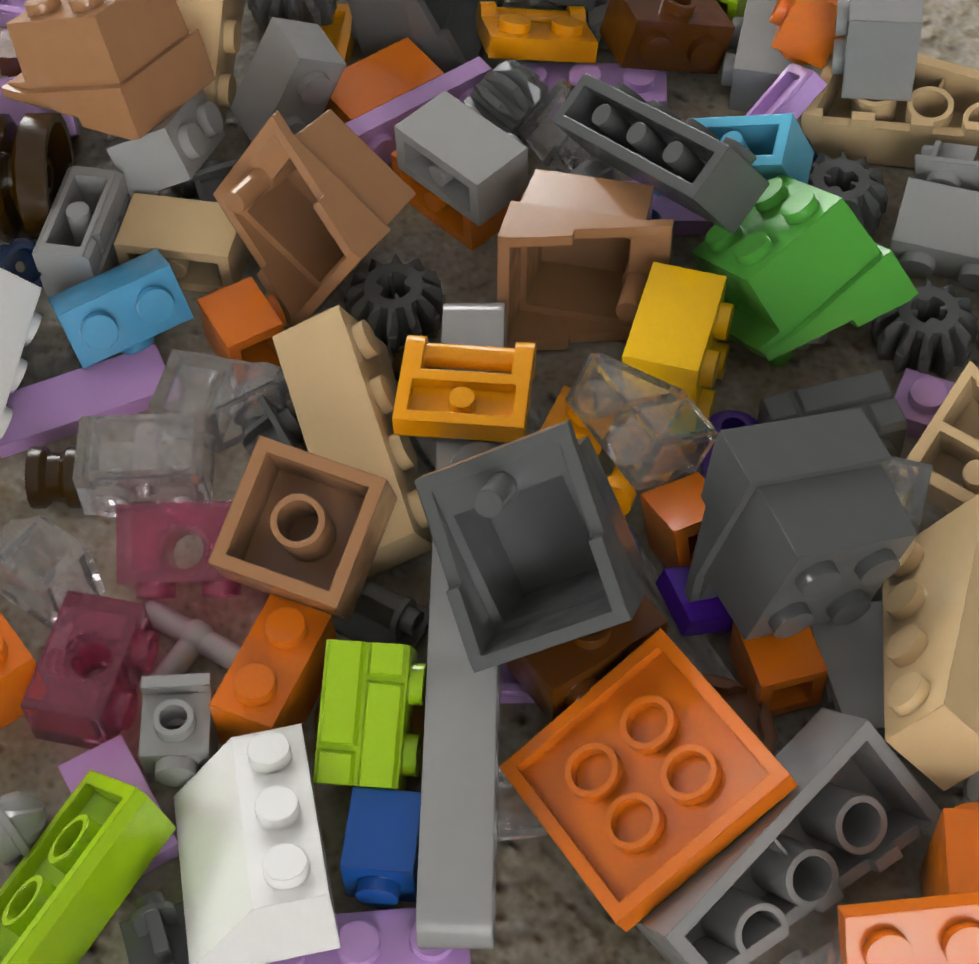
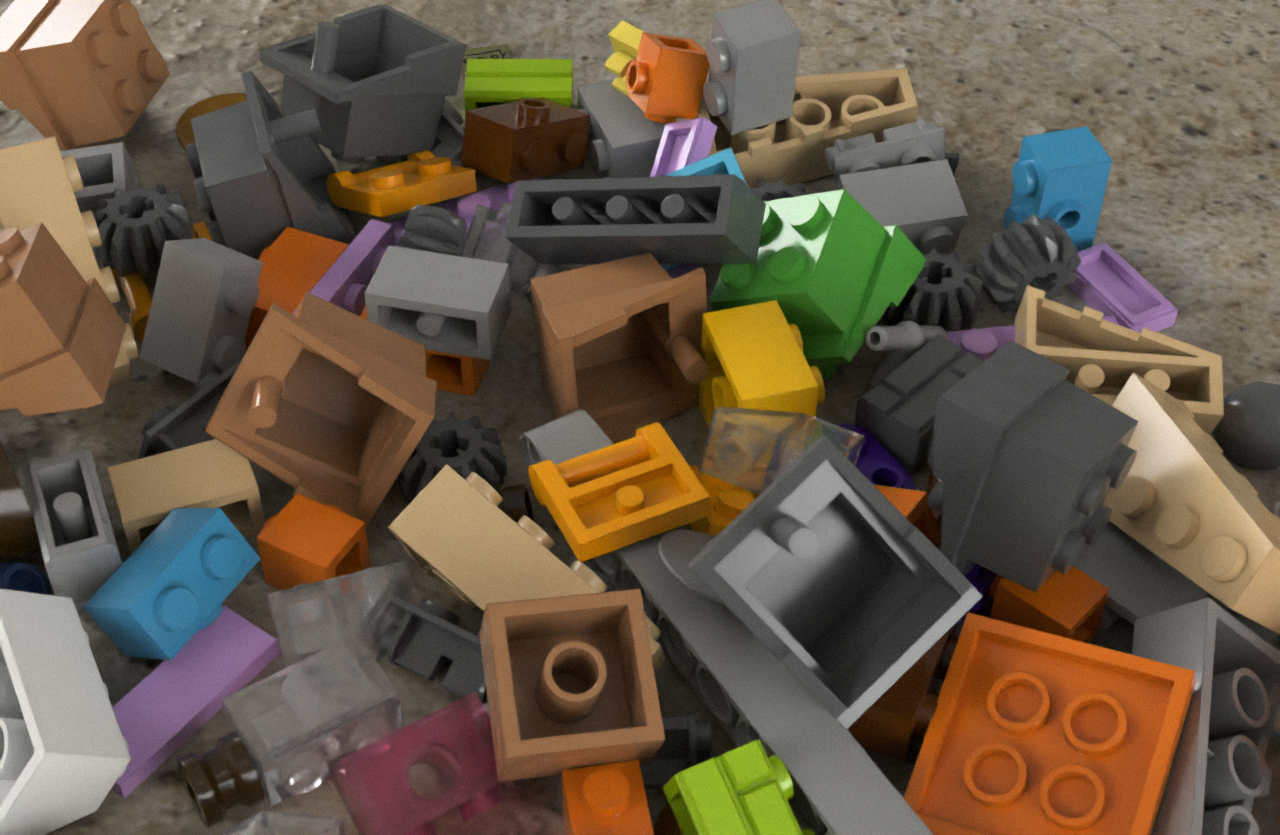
camera: 35 degrees left, 10 degrees down
(171, 149) = (124, 420): light grey brick -> none
(847, 361) = (899, 344): none -> light grey piece

